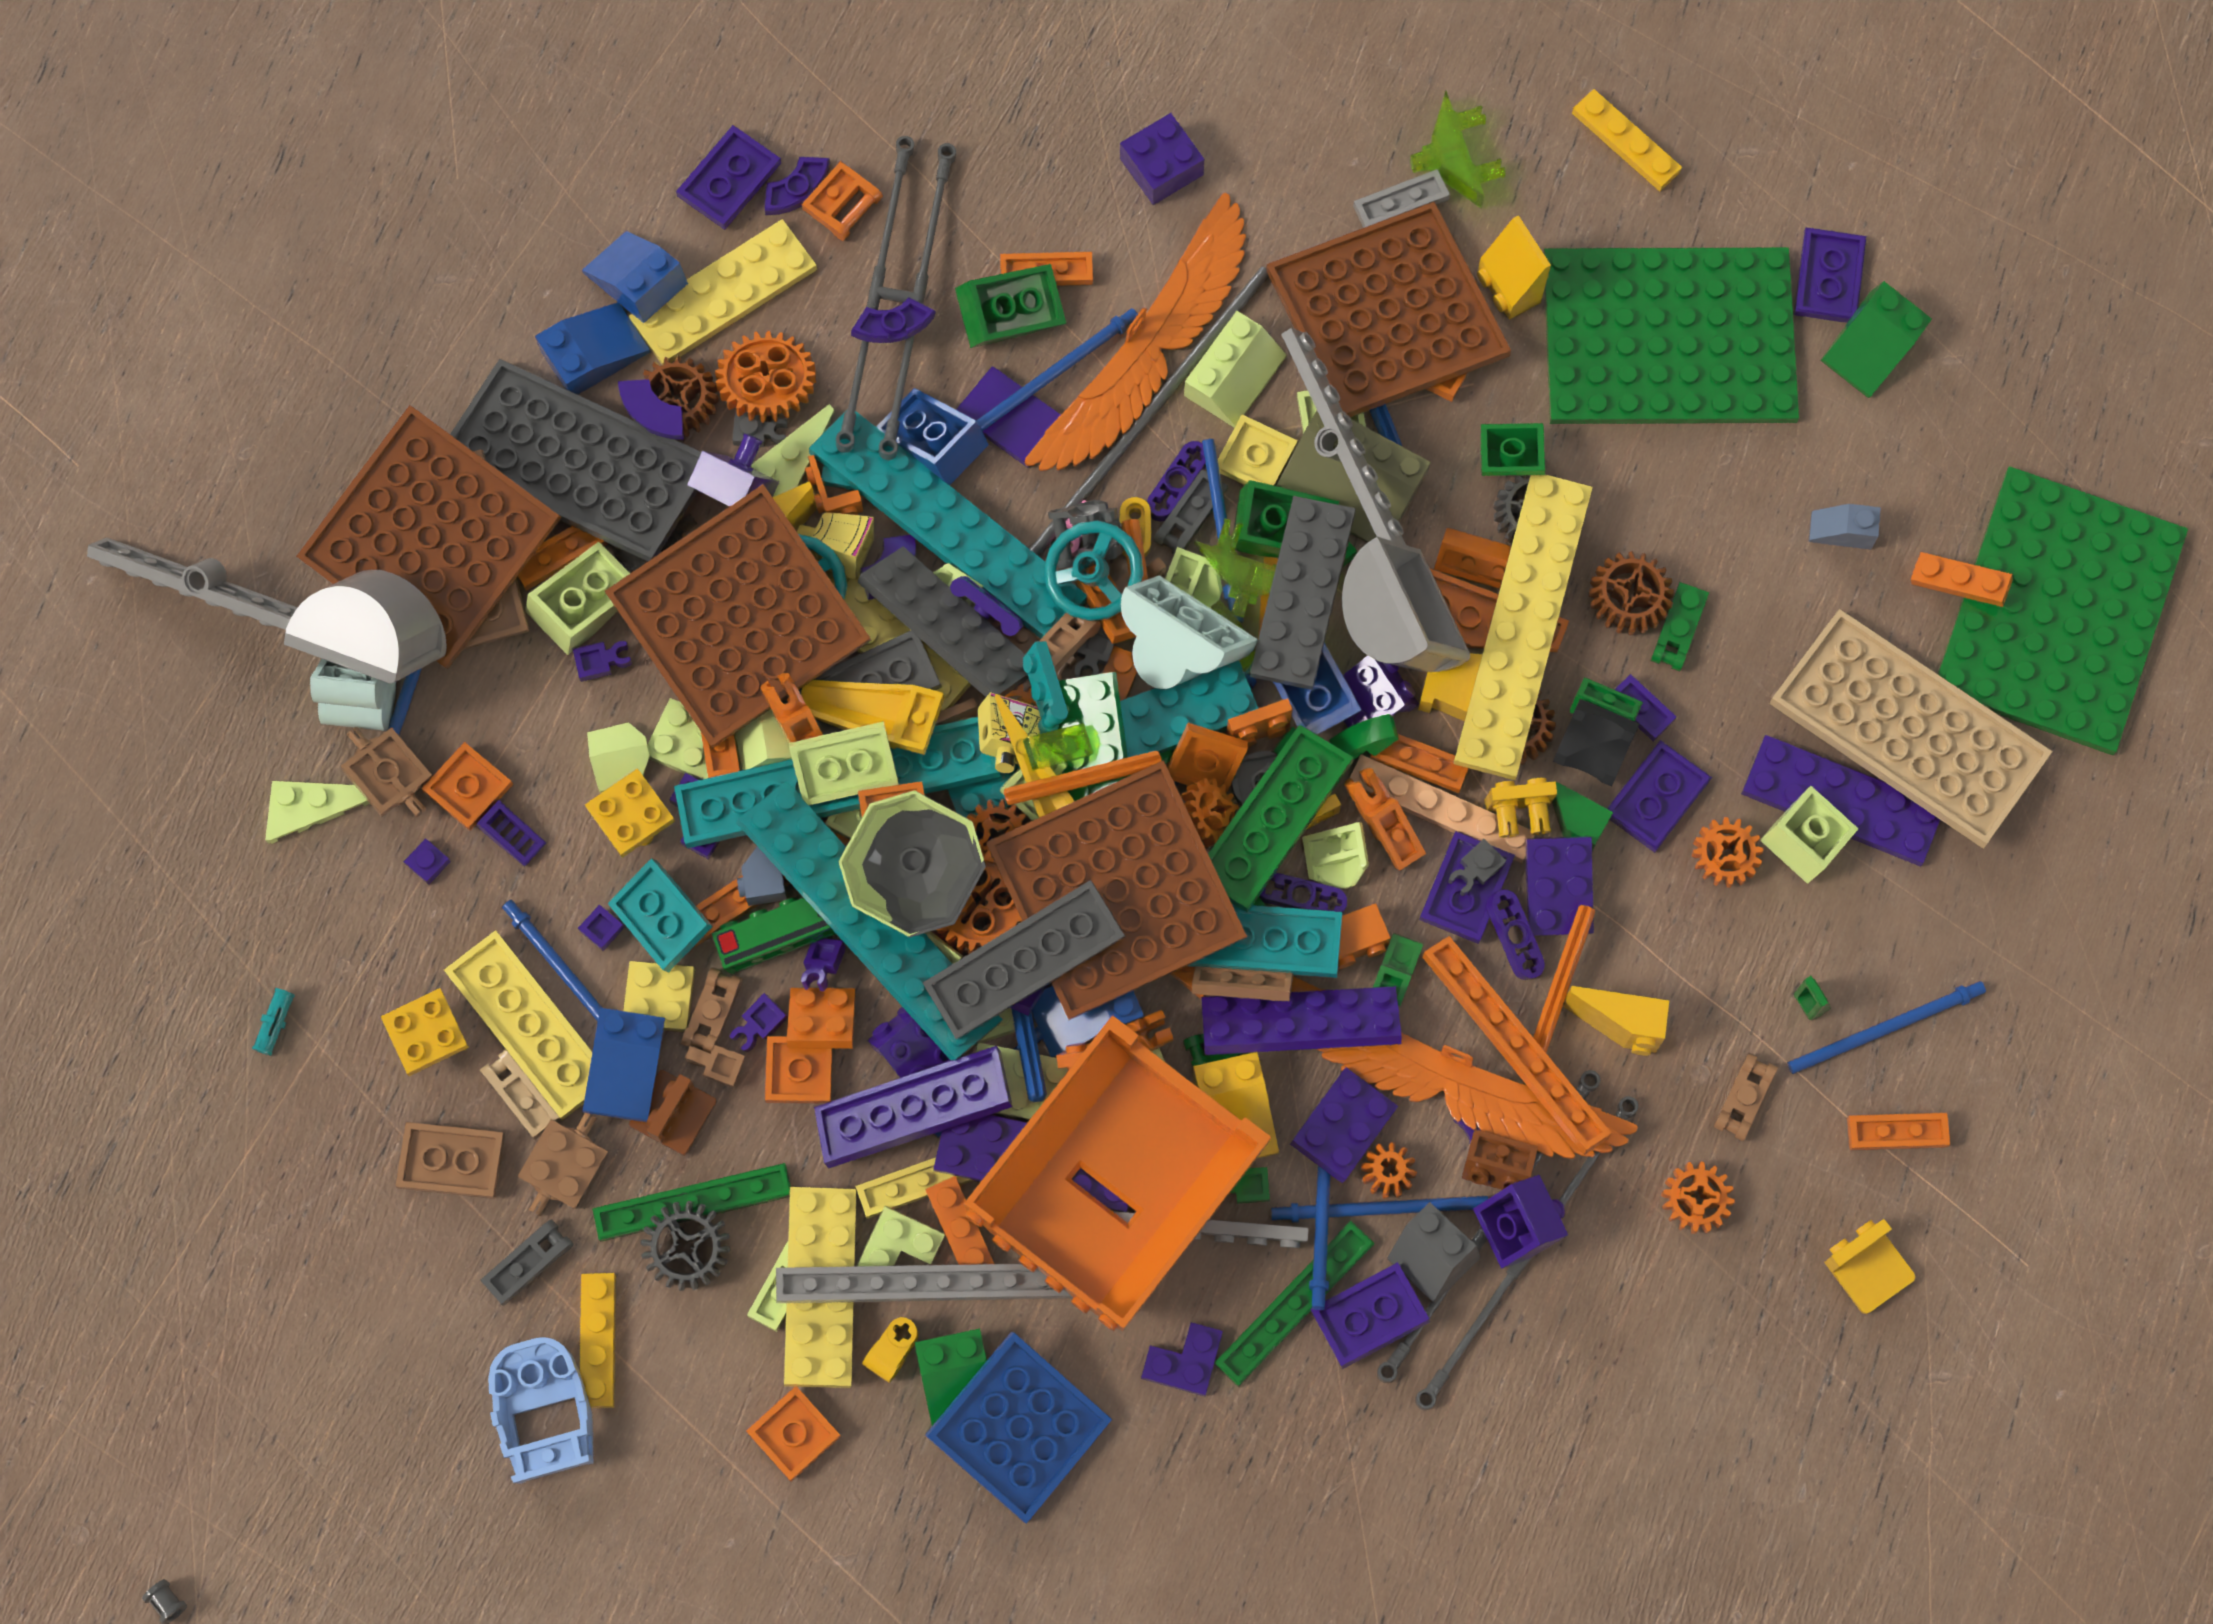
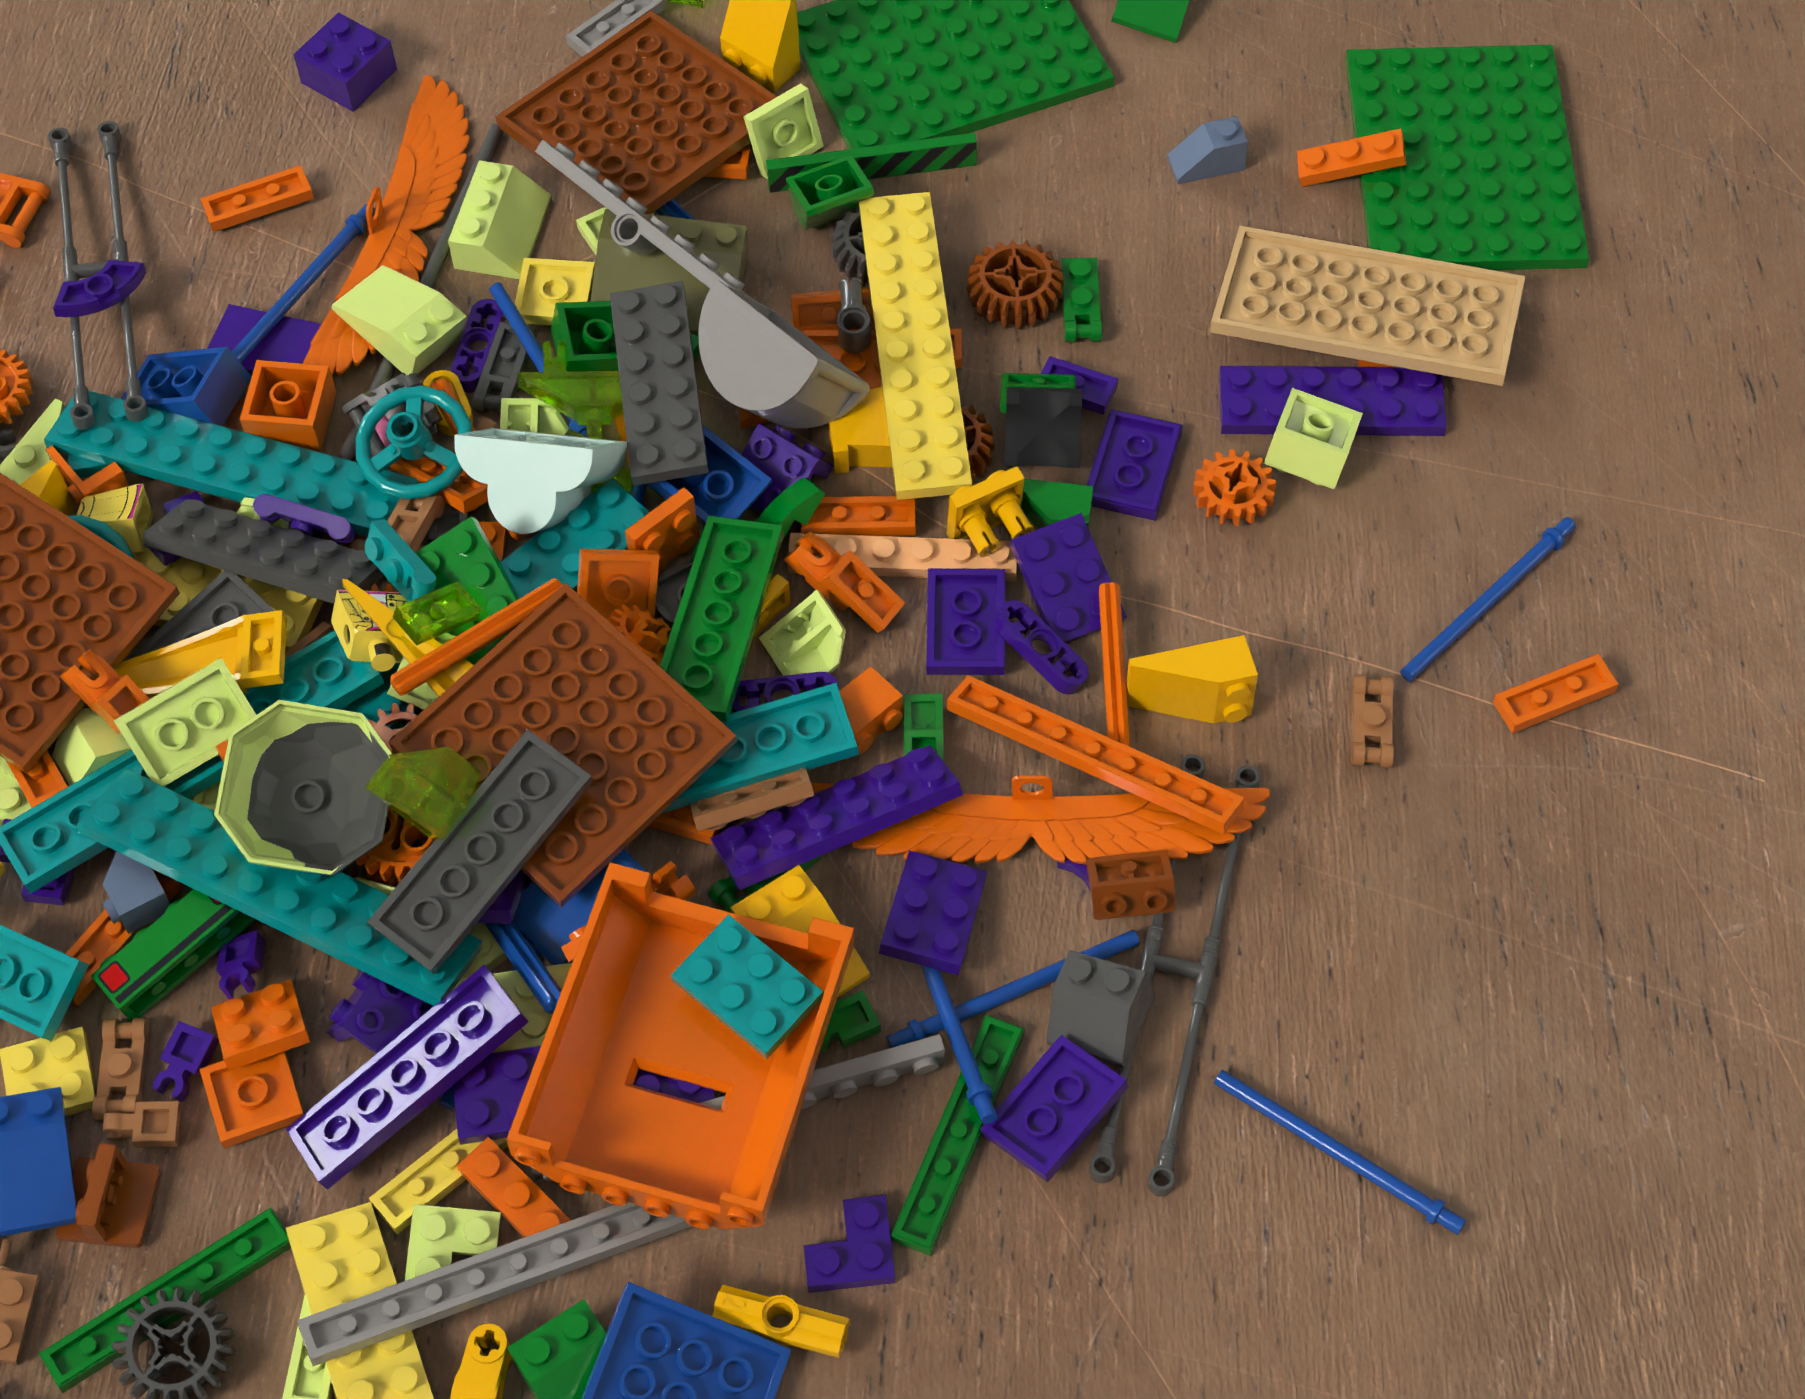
camera: 20 degrees left, 15 degrees down
(1000, 898) = (426, 787): none -> clear neon green slope
(1009, 487) = (289, 403): none -> orange brick
(1010, 305) = (226, 239): green slope -> none
(1096, 1381) = (808, 1330): none -> yellow piece
(1122, 437) = (402, 318): none -> yellowish green slope
(1179, 1145) = (747, 986): none -> teal plate
(1376, 1169) = (1018, 953): orange gear -> none
(1479, 864) = (969, 589): dark grey plate -> none
(1485, 579) = (853, 315): none -> dark grey pin
(1497, 375) = (784, 127): none -> yellowish green plate
(1521, 1221) = (1184, 928): dark purple brick -> none
(1564, 428) = (885, 159): none -> green tile
(1612, 1502) = (1434, 1210): none -> blue bar
(1713, 1199) = (1374, 836): orange gear -> none
(1812, 999) = (1397, 590): green slope -> none
(1869, 1266) = (1595, 840): yellow bracket -> none

